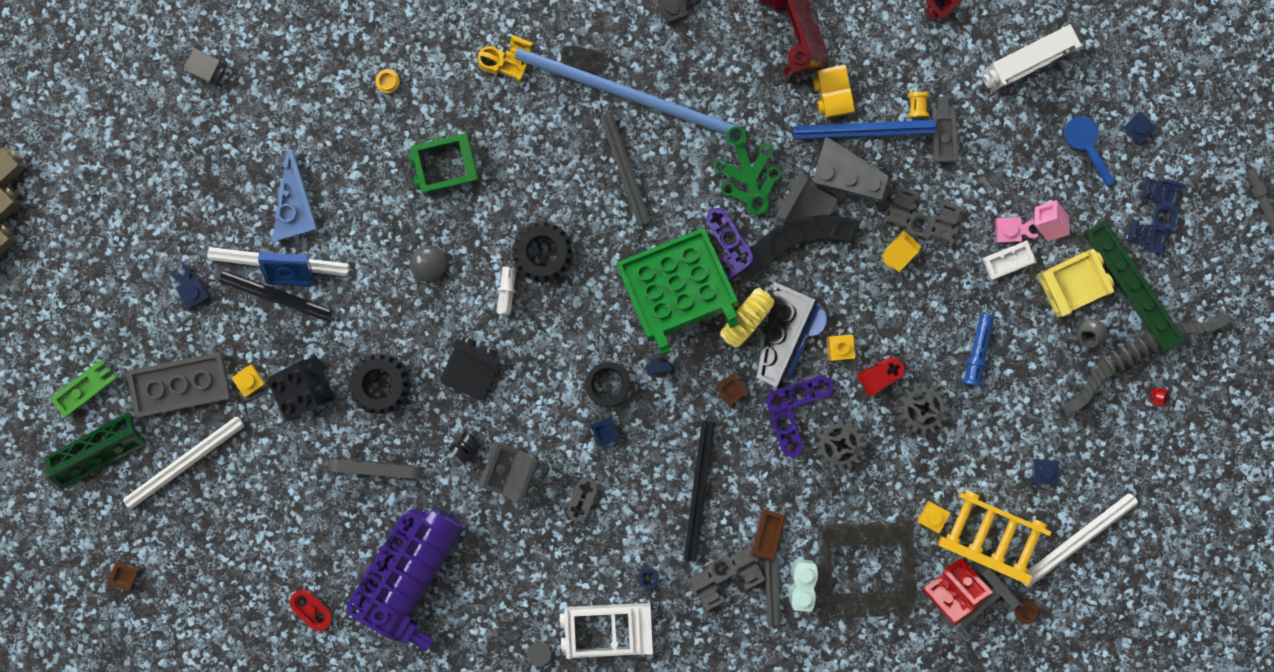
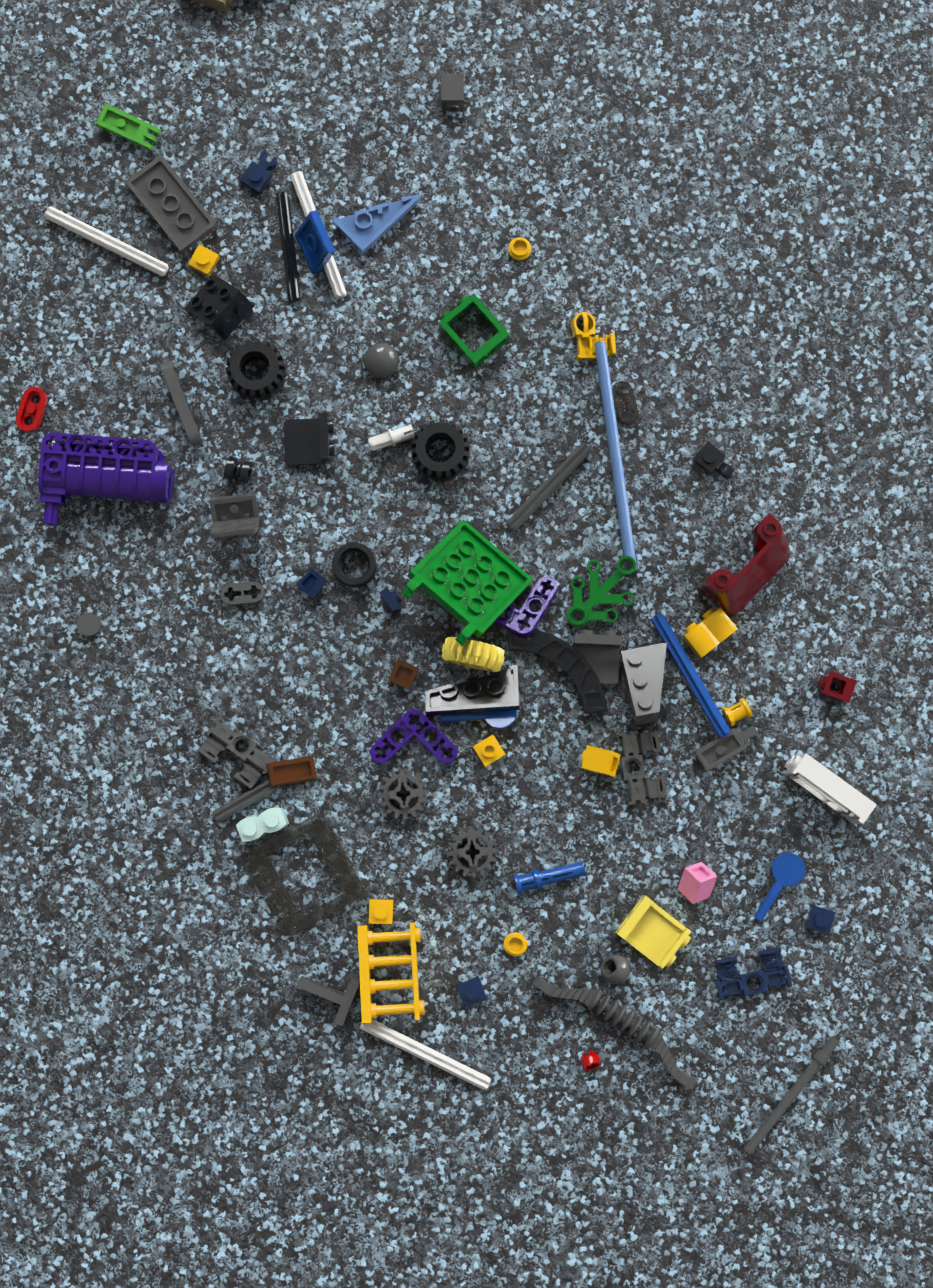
camera: 60 degrees right, 5 degrees down
(93, 456) = (75, 163): dark green fence -> none
(639, 630) = (153, 698): white door -> none
(641, 578) = (197, 680): dark blue bush -> none
(699, 491) = (300, 691): black axle -> none
(876, 377) = (479, 796): red piece -> none
(958, 592) = (324, 965): red slope -> none
(1009, 260) = (642, 862): white plate -> none
(1012, 230) = (671, 851): bright pink plate -> none
(1023, 411) = (515, 944): none -> yellow plate
(1026, 611) = (338, 1038): reddish brown plate -> none
(1134, 287) = (676, 986): dark green tile -> none

